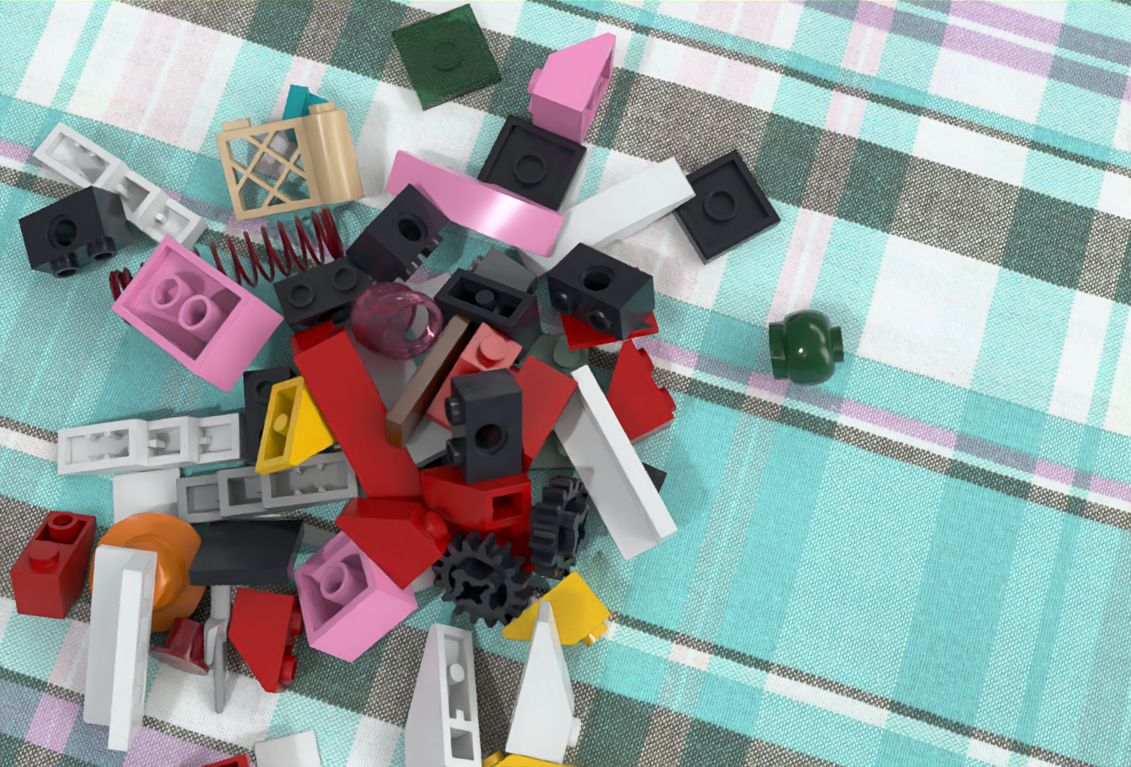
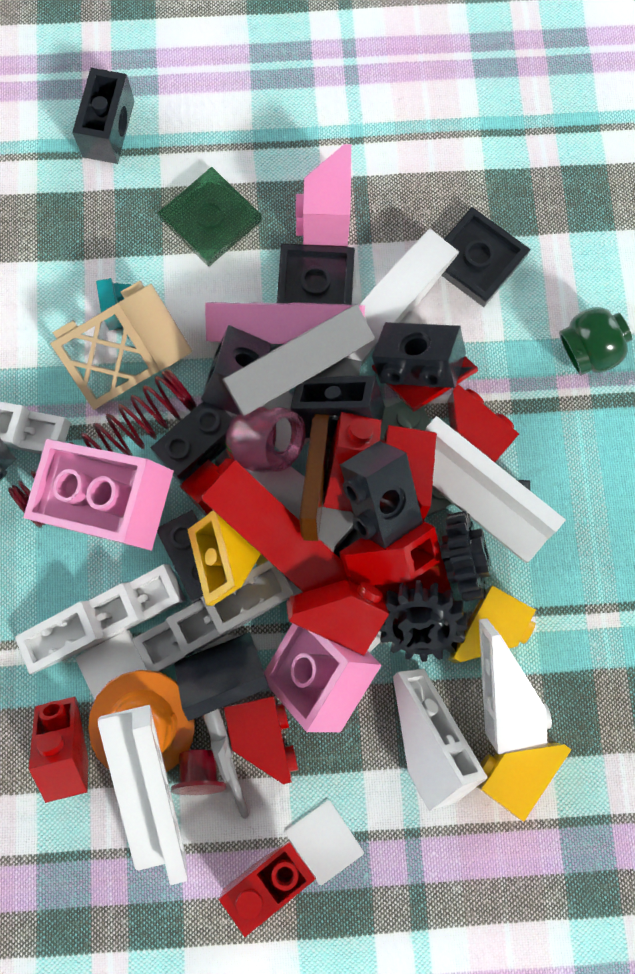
camera: 20 degrees left, 0 degrees up
(464, 248) = (298, 360): none -> light grey slope

